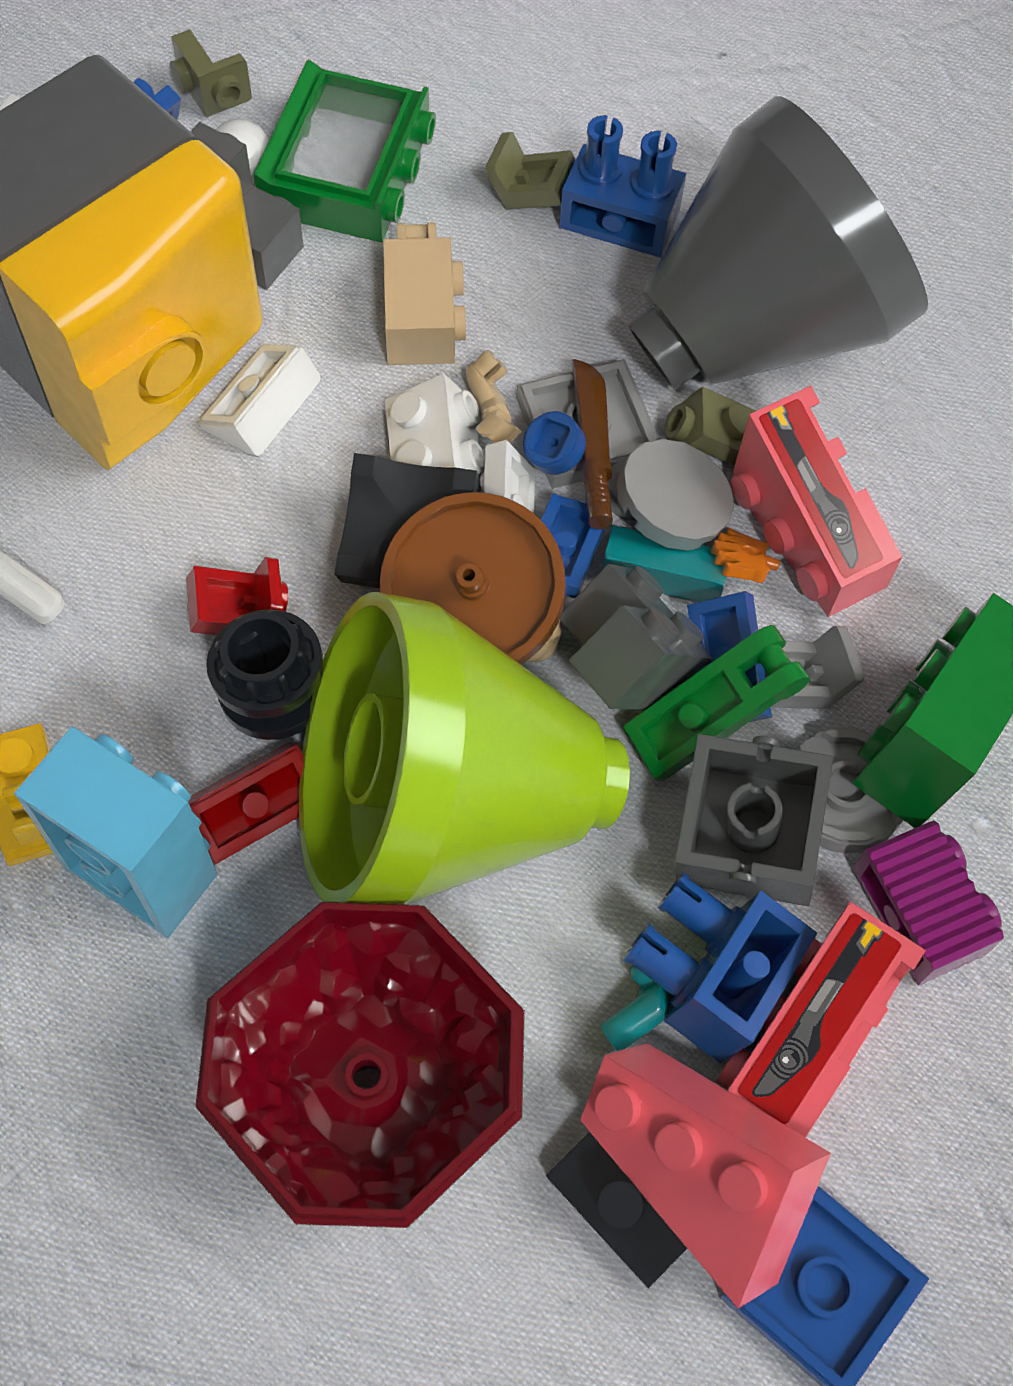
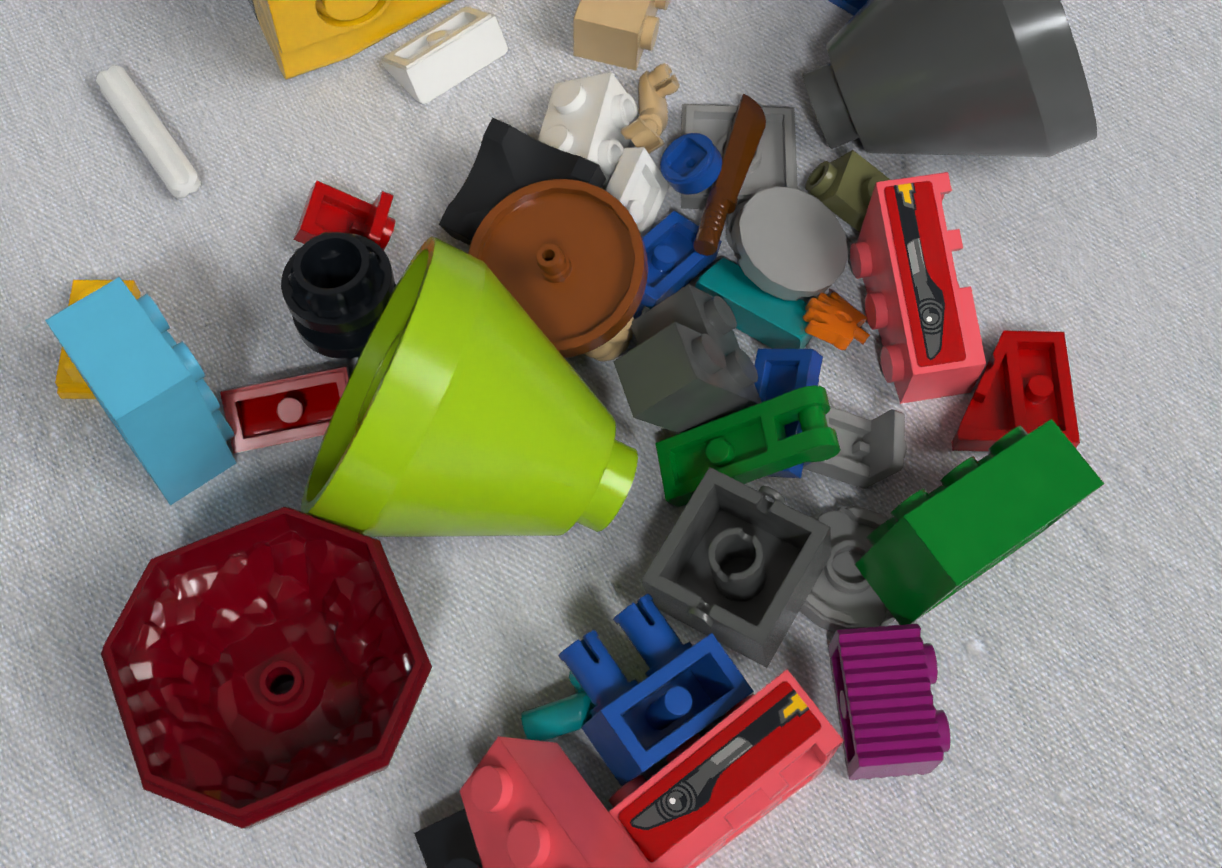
camera: 20 degrees right, 0 degrees up
(936, 575) = (1022, 386): none -> red wing

